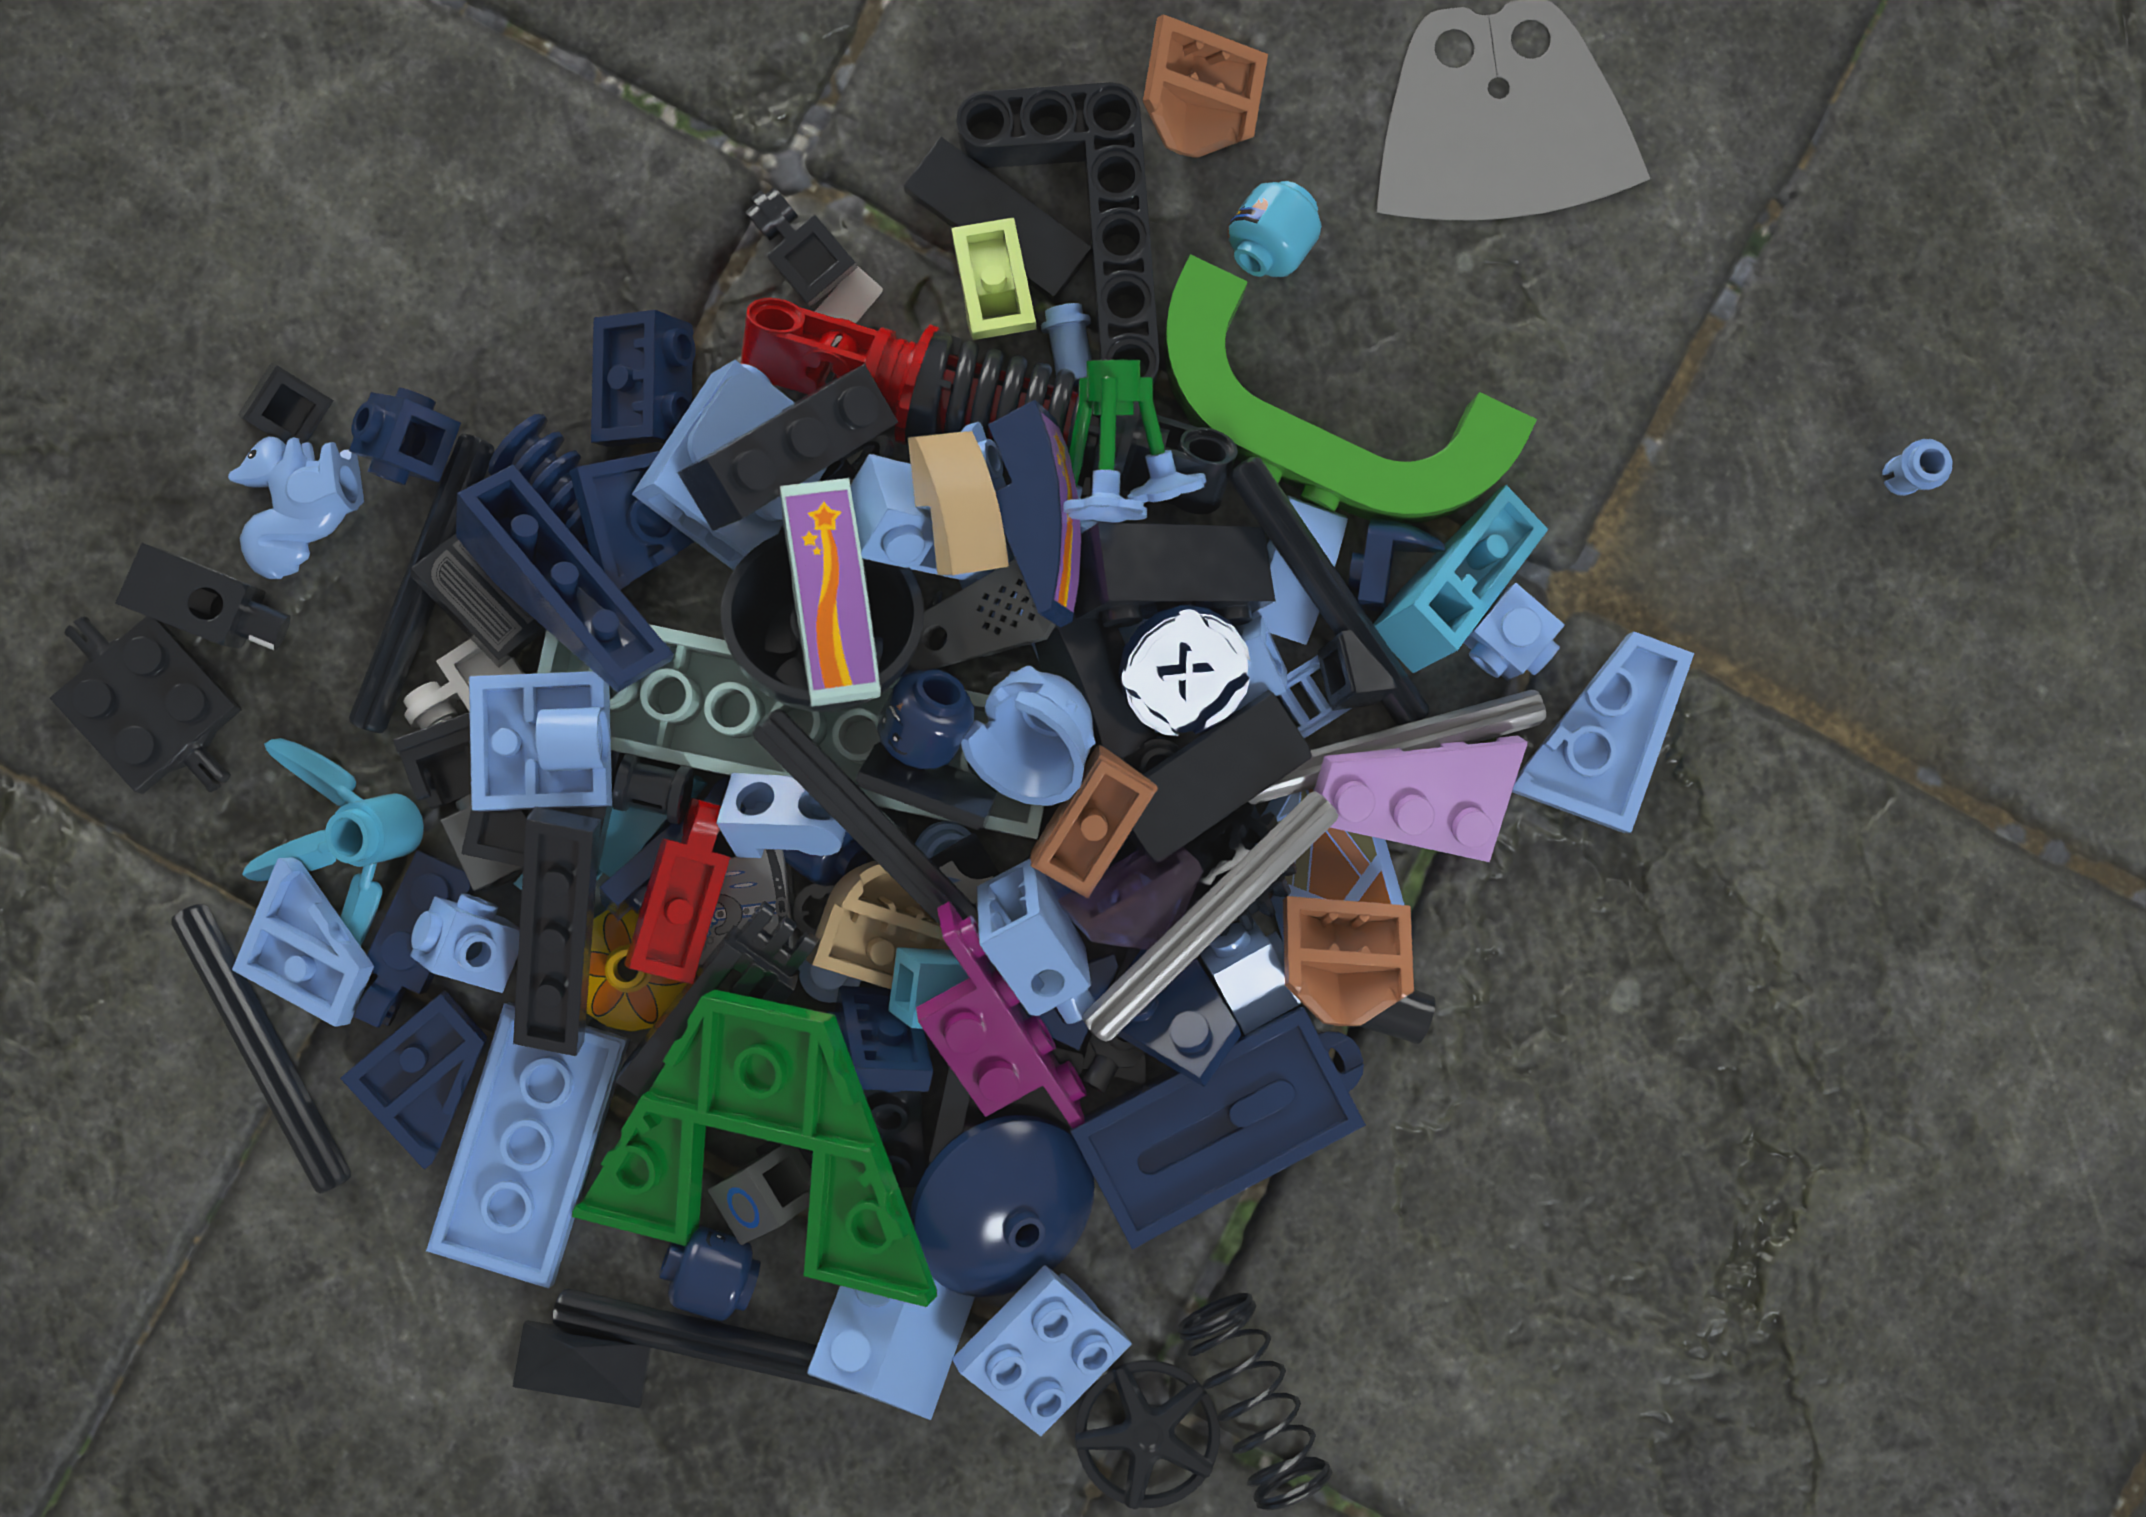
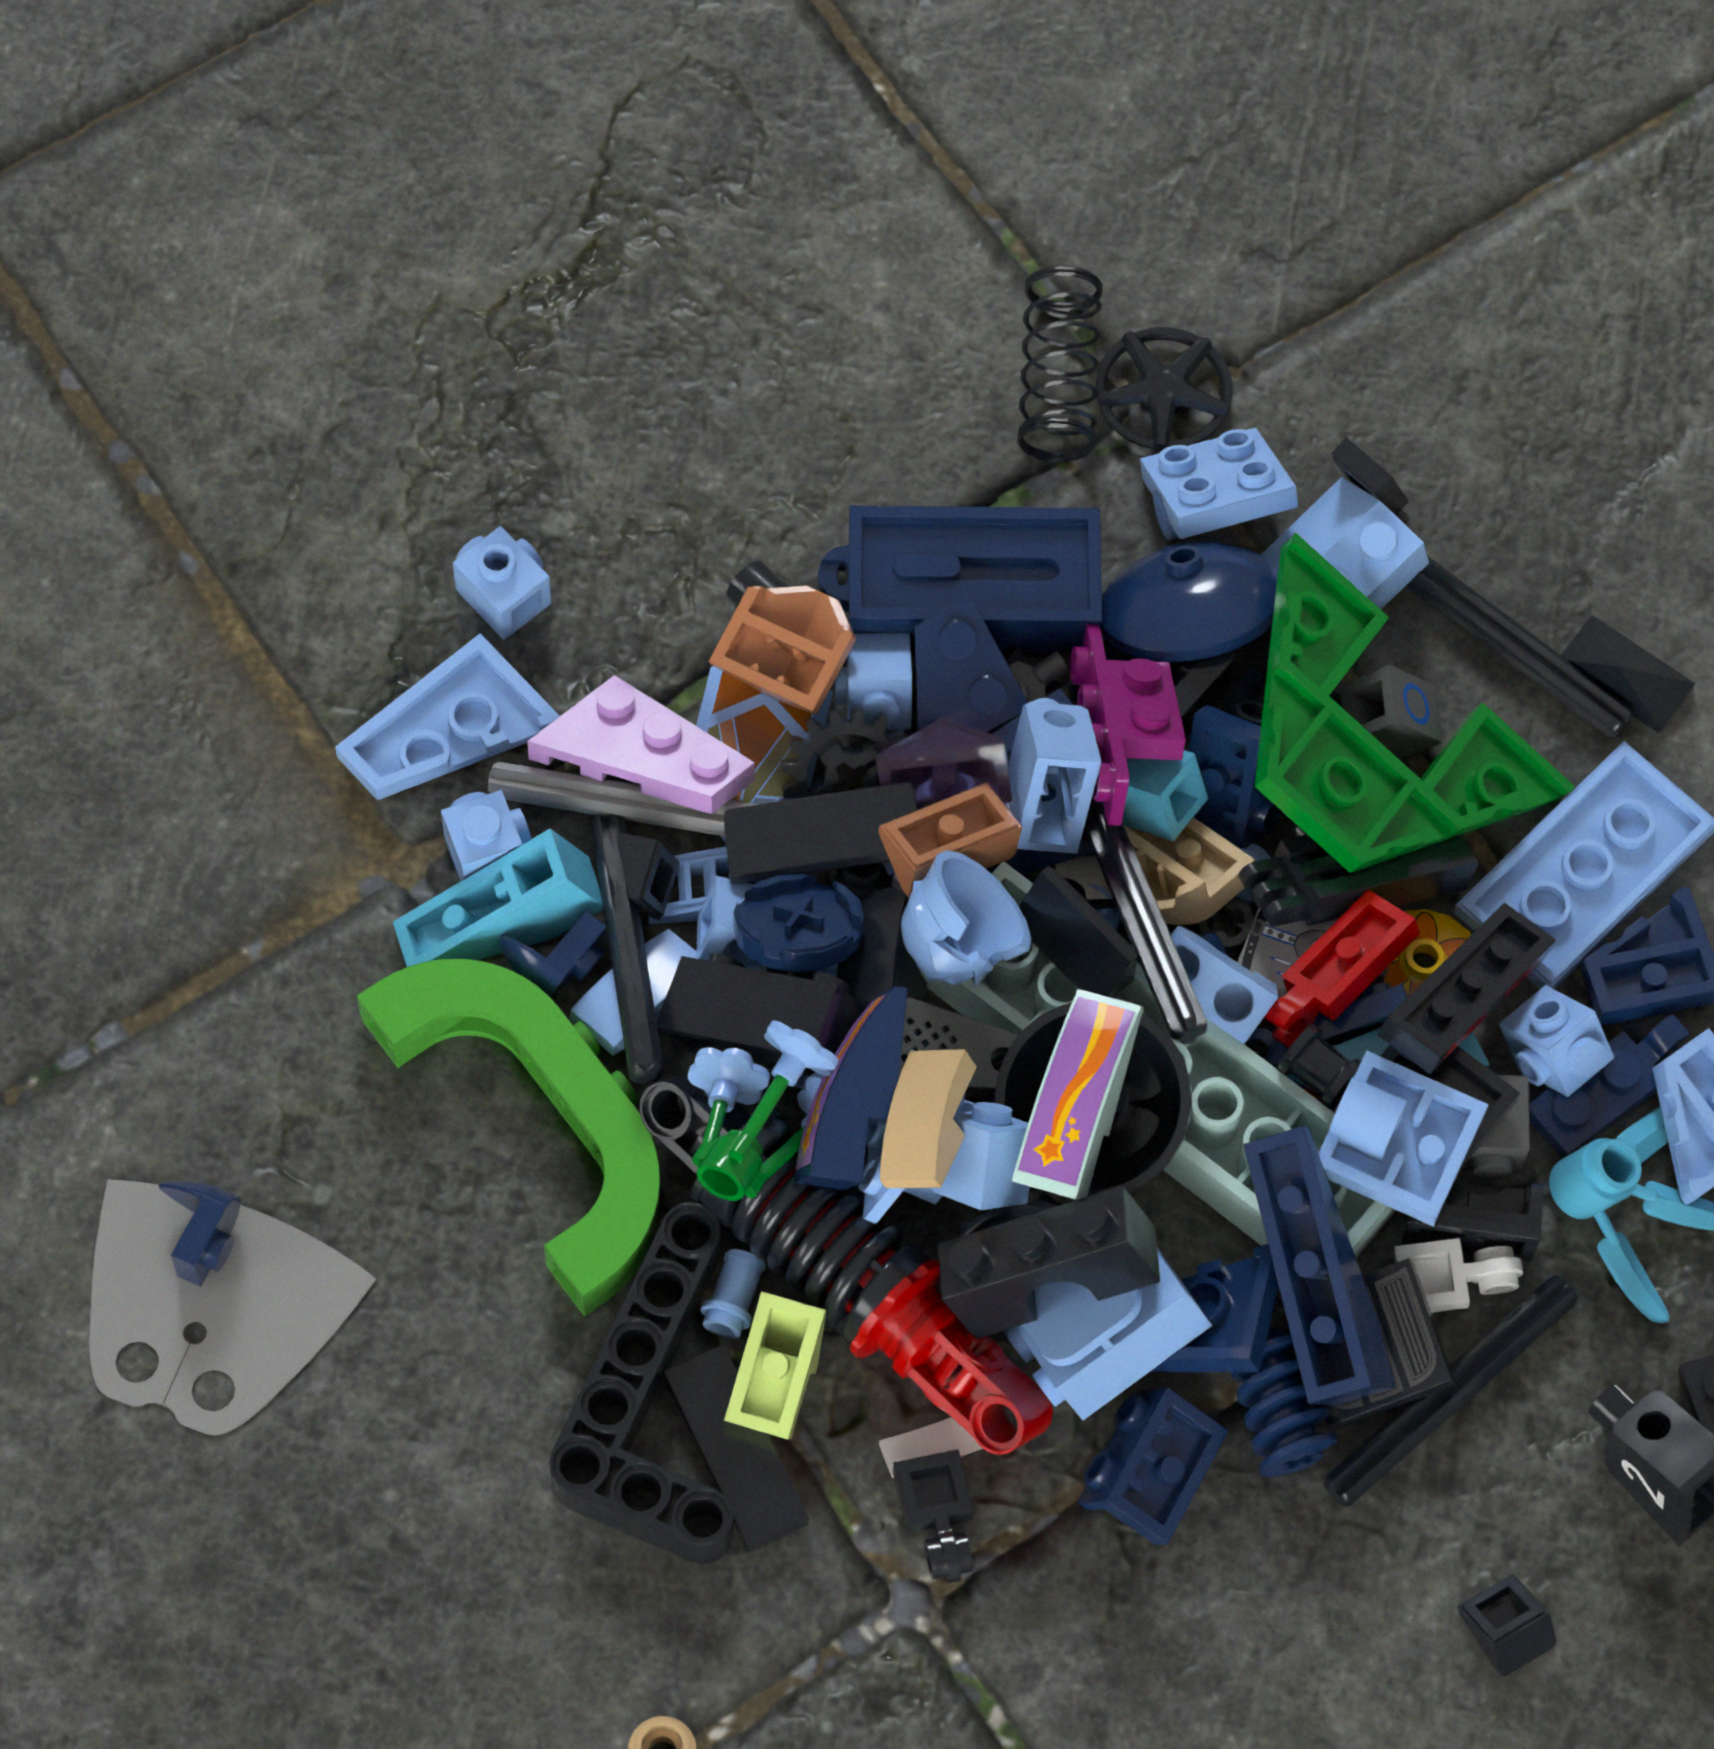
camera: 150 degrees left, 20 degrees down
(306, 501) = (1523, 1514): light blue animal -> none
(403, 436) = (1401, 1512): dark blue brick -> none
(710, 1274) = (1471, 673): dark blue head -> none
(900, 1426) = (1368, 475): none -> black tile
(925, 719) = (1045, 977): dark blue head -> none
(1202, 88) = (473, 1461): nougat slope -> none
(1210, 916) = (888, 718): light grey axle -> none
(1275, 229) = (486, 1294): medium azure head -> none
(1536, 153) = (207, 1237): none -> dark blue plate
(1642, 898) = (502, 580): none -> light blue brick
(1909, 467) = (43, 794): light blue pin -> none

